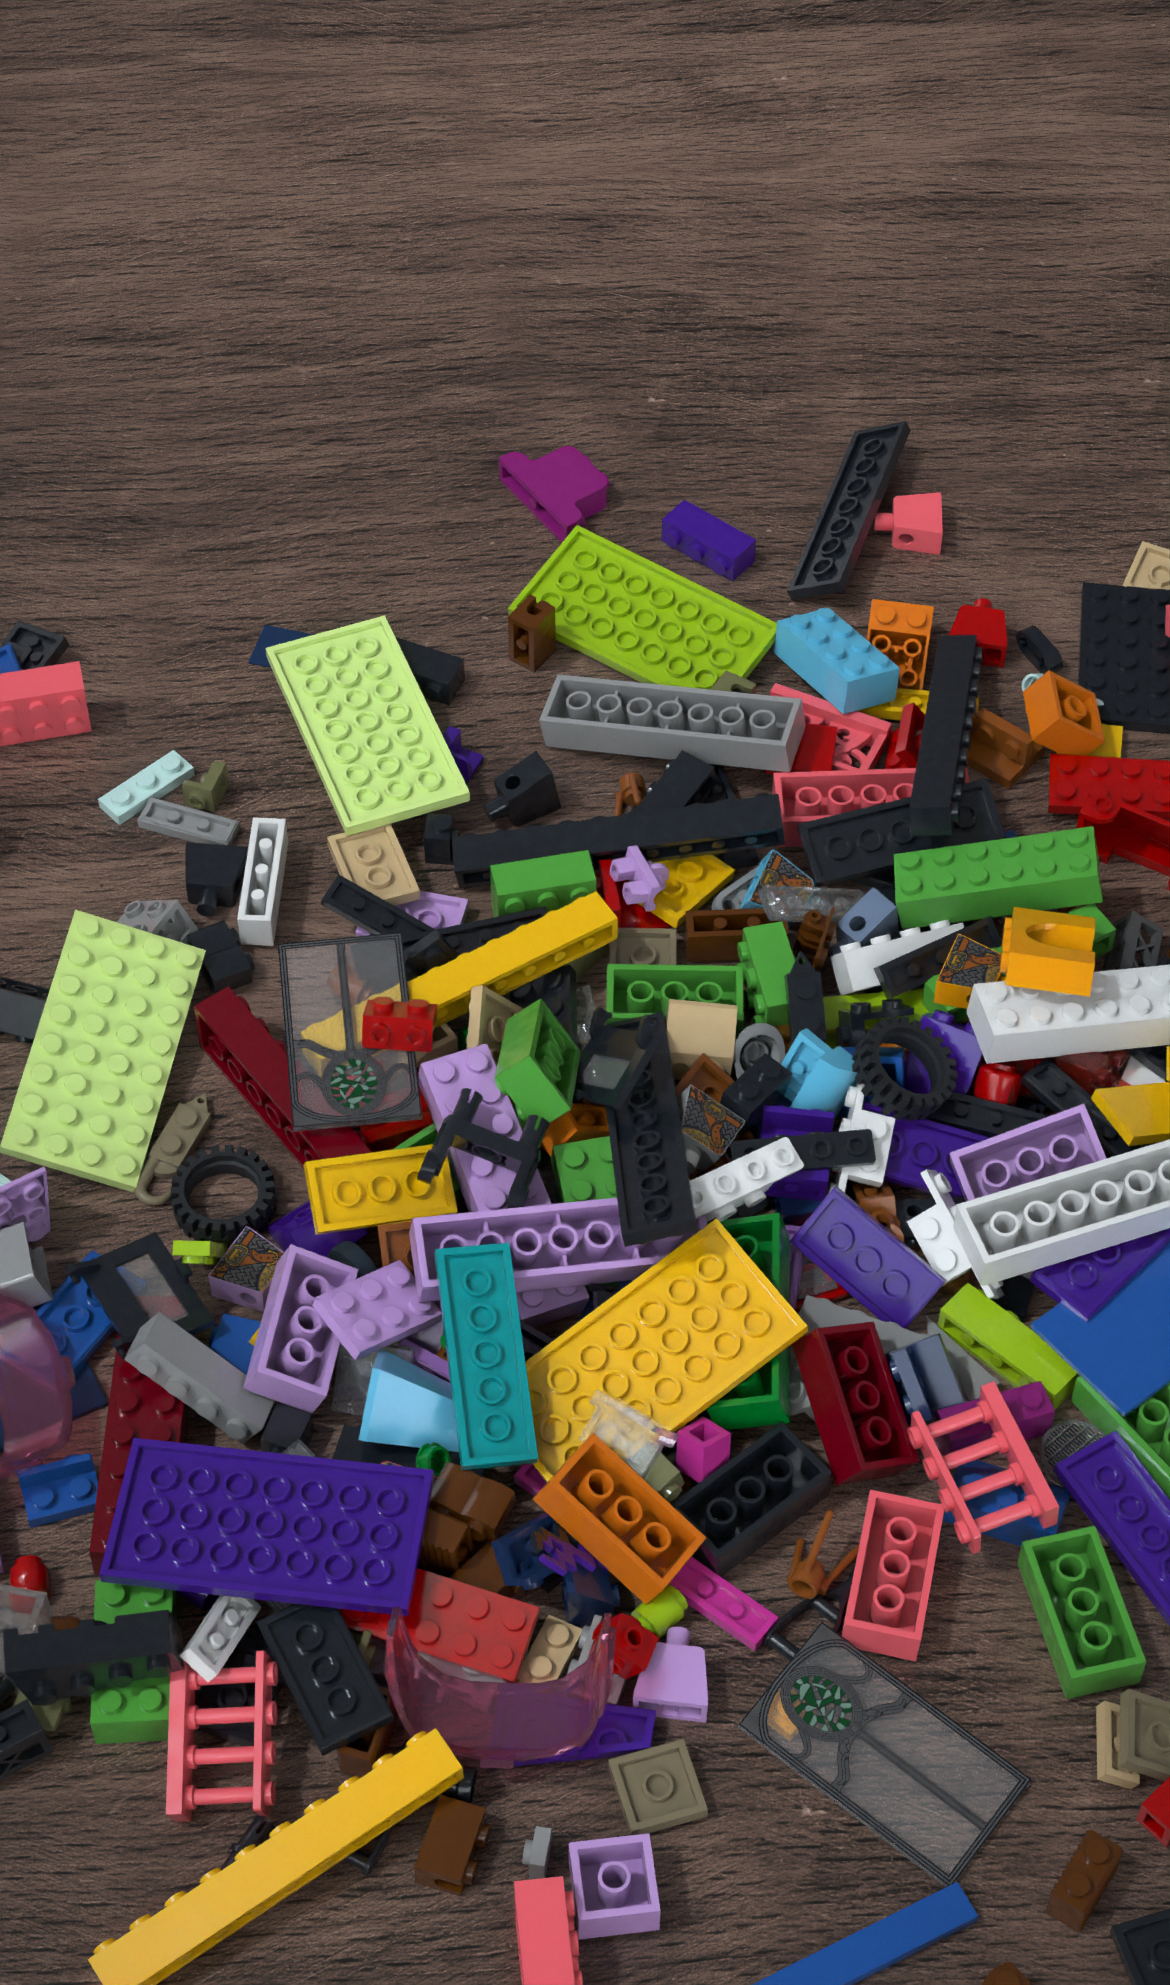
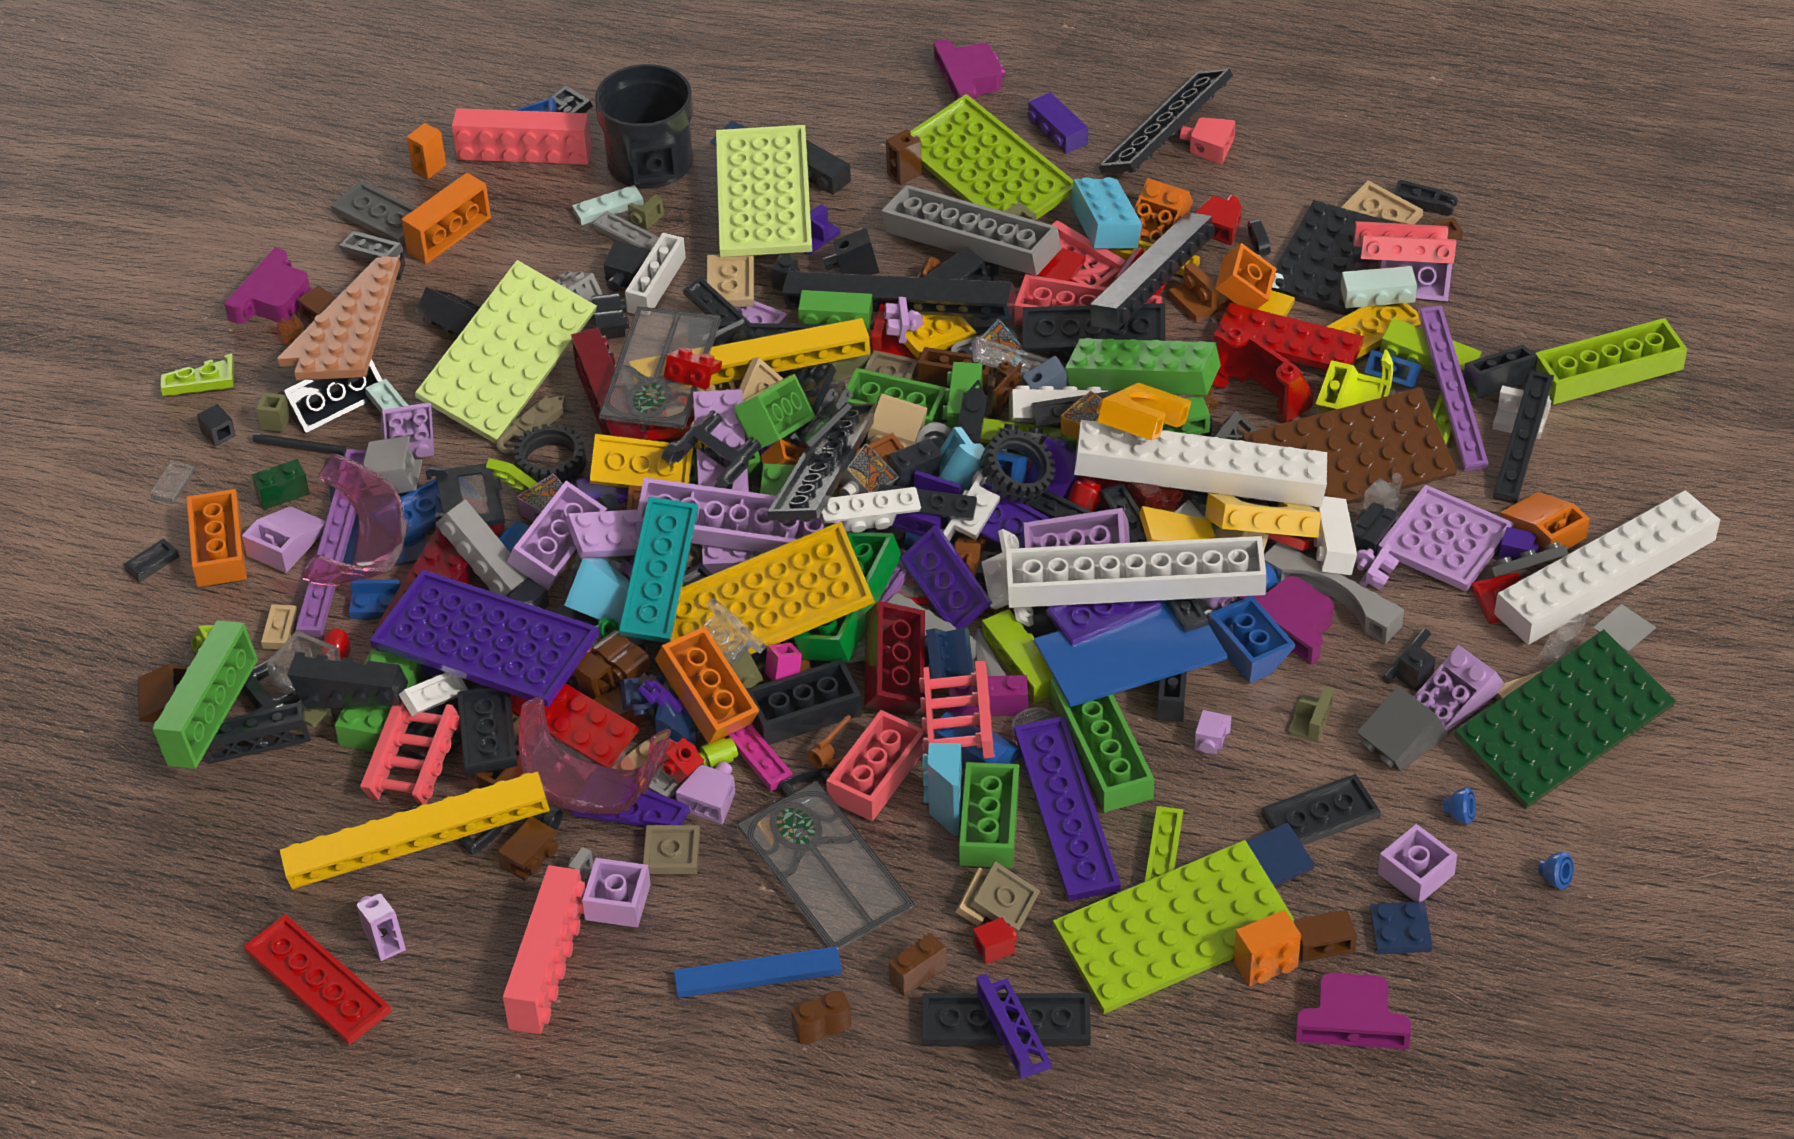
camera: 20 degrees right, 5 degrees down
(164, 624) = (646, 124): none -> black cylinder
(1013, 1588) = (944, 784): none -> medium azure slope

